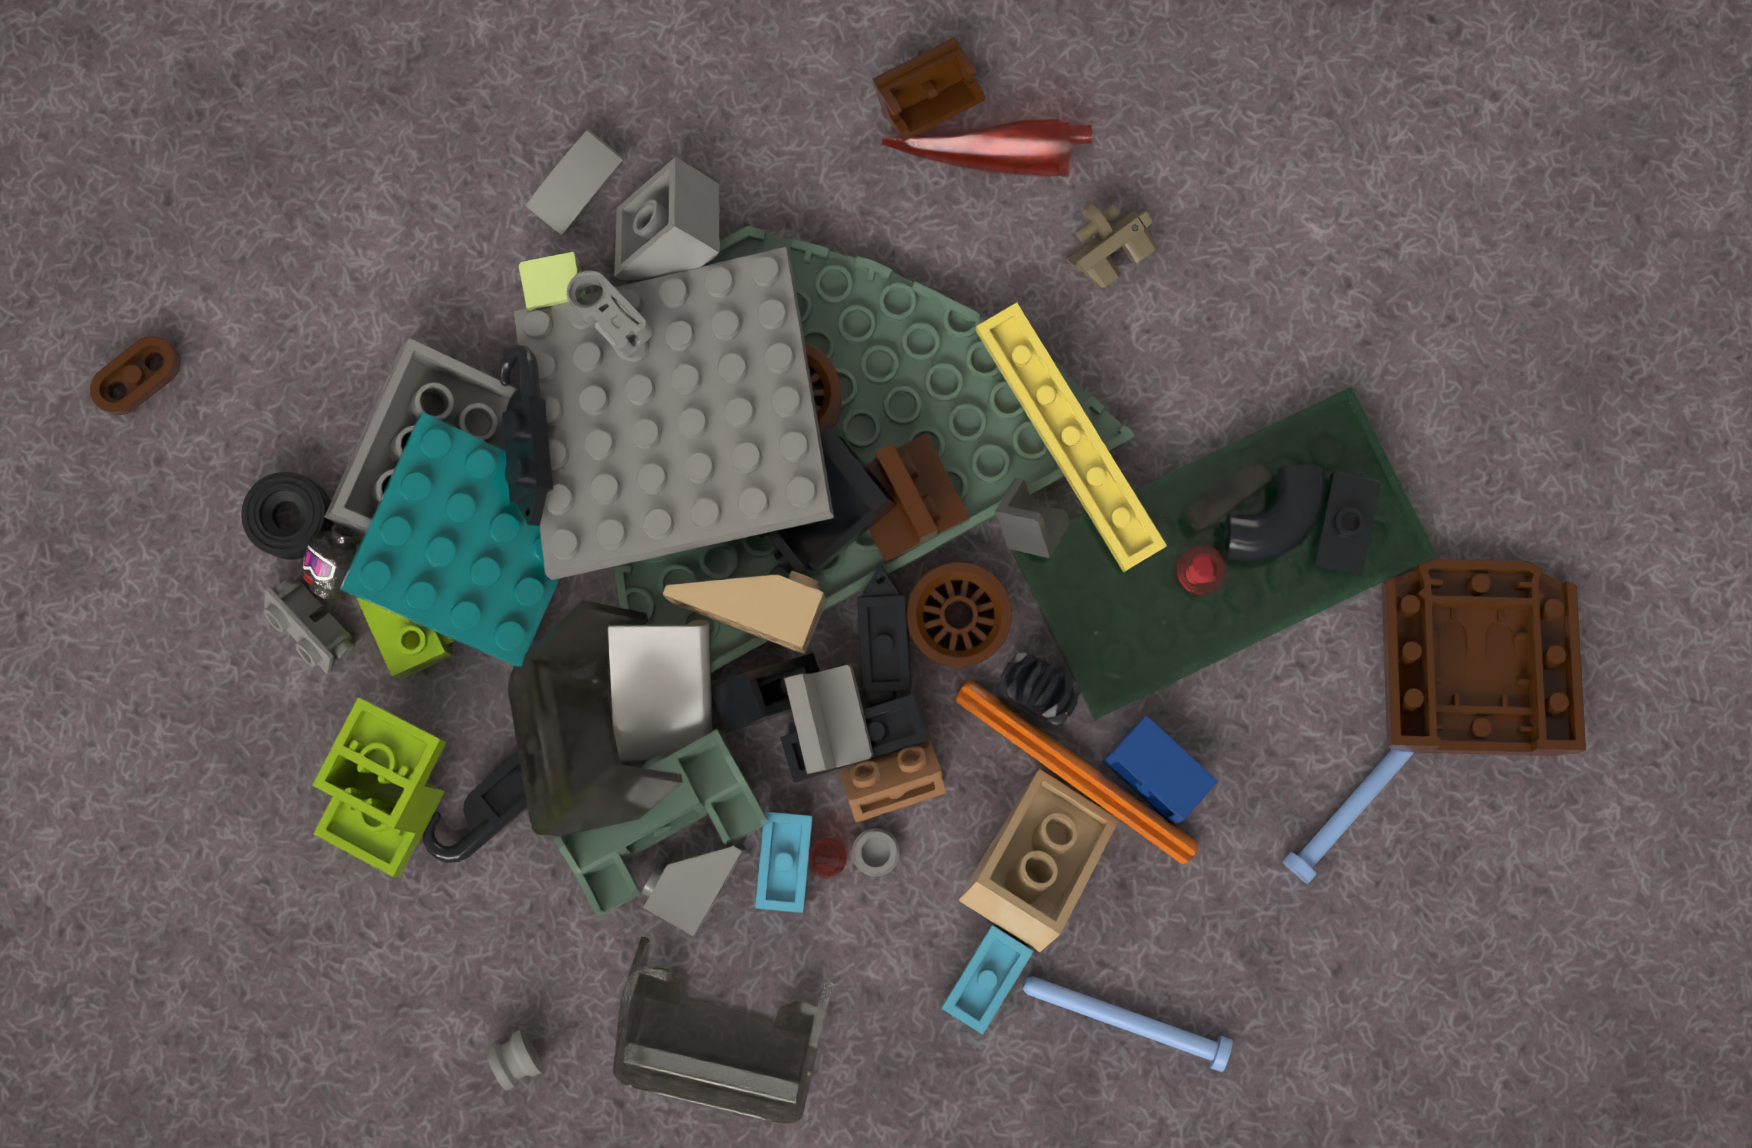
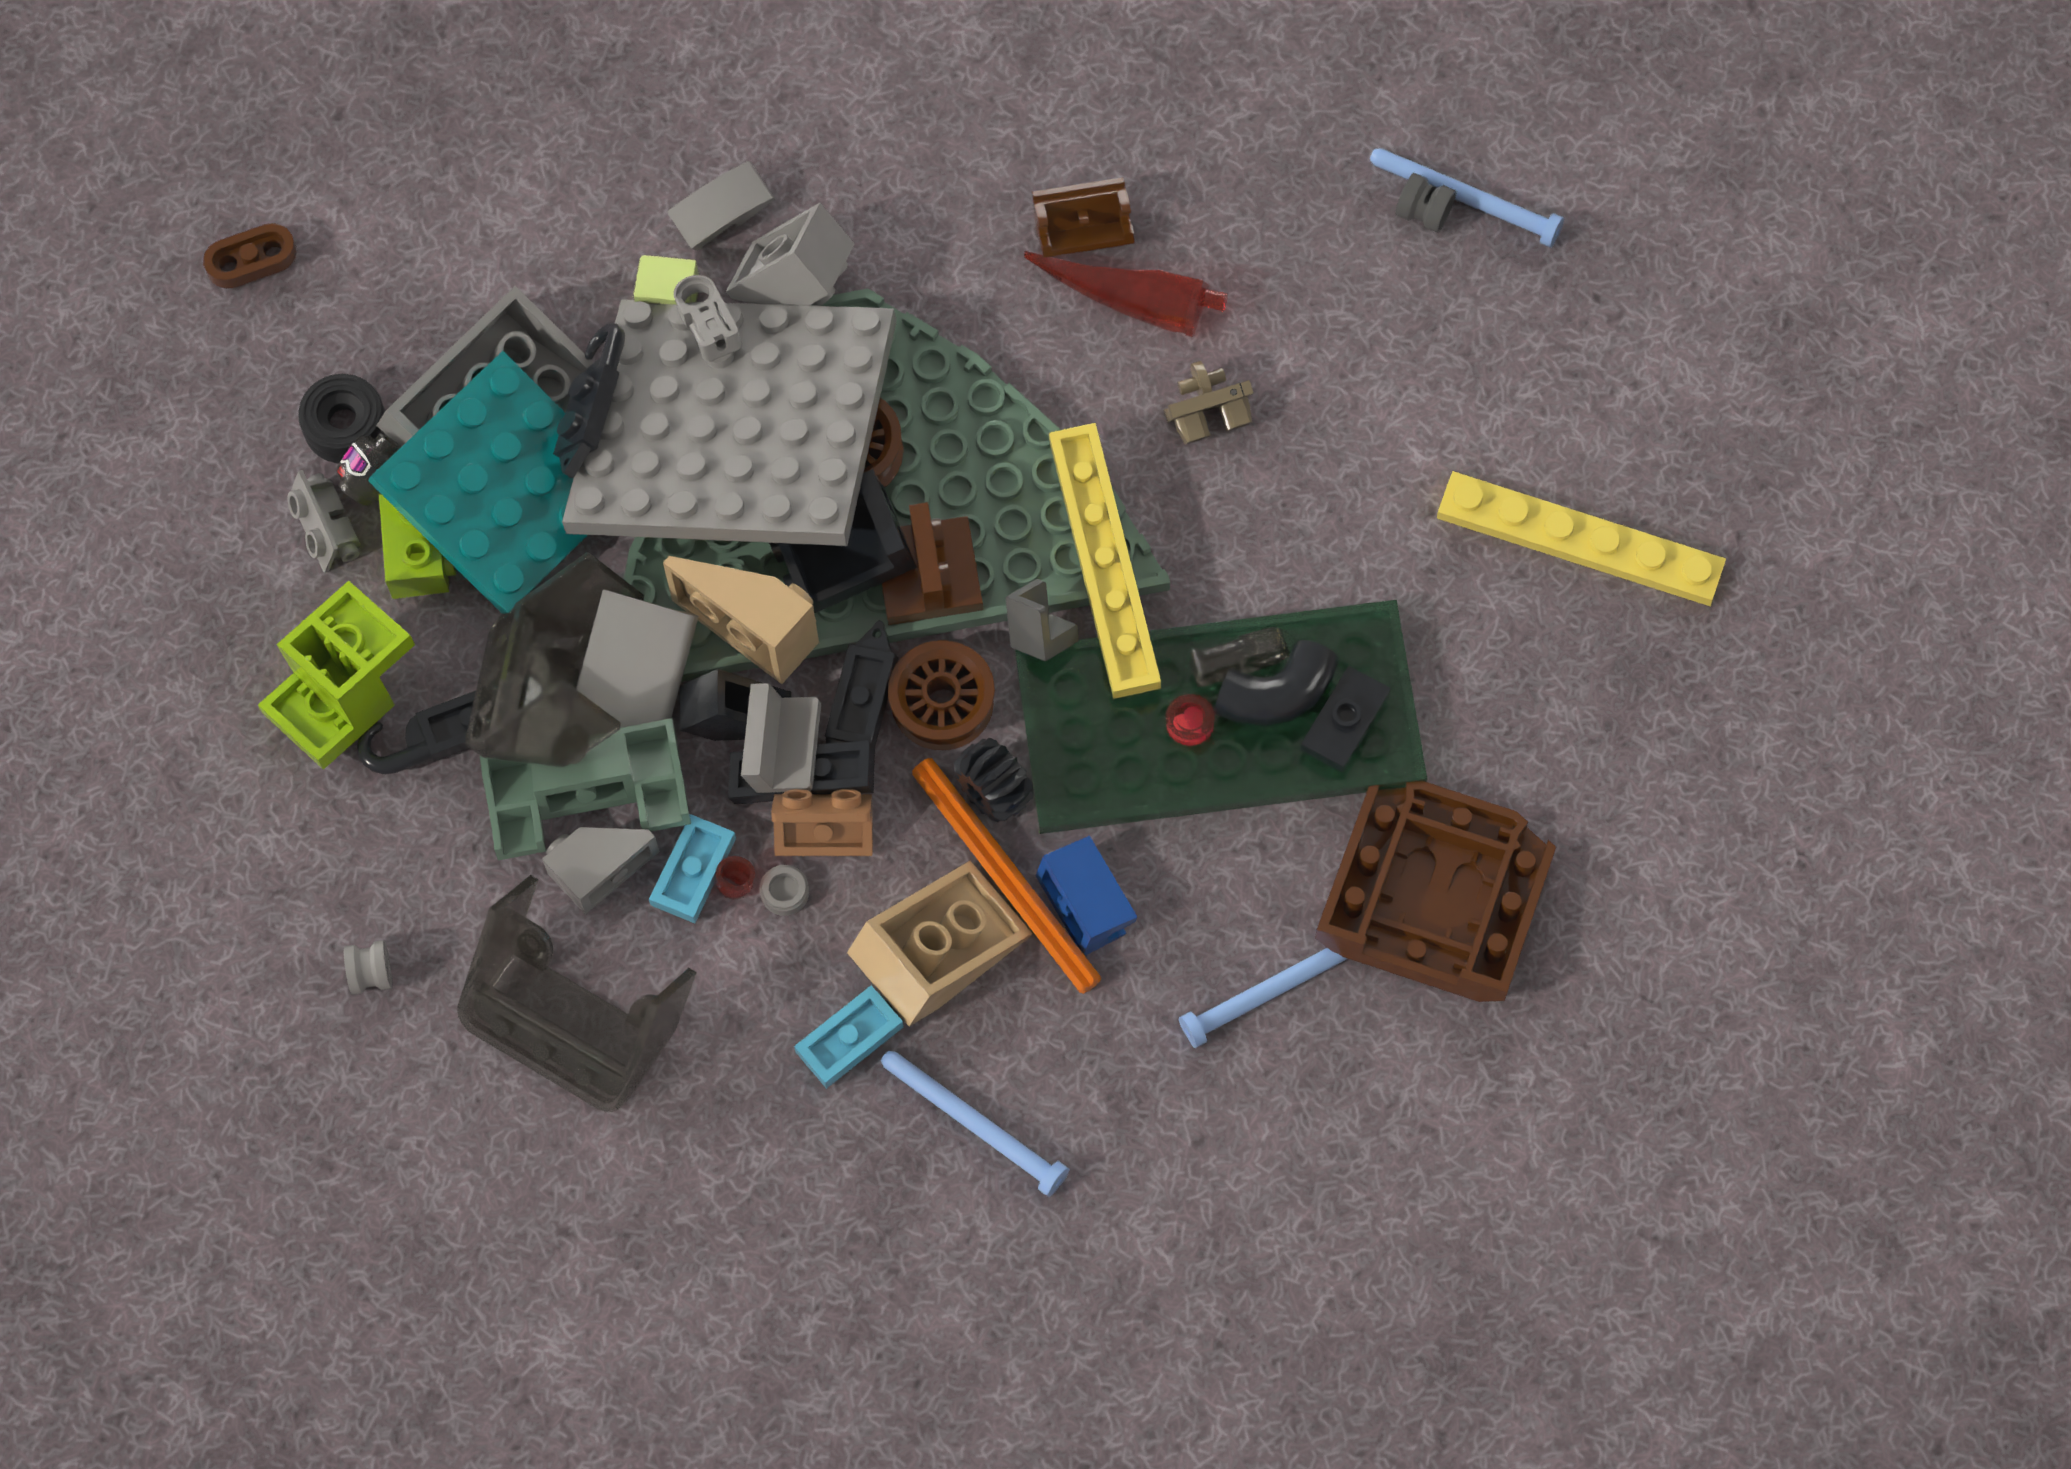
camera: 20 degrees right, 15 degrees down
(1497, 267) = (1581, 538): none -> light yellow plate

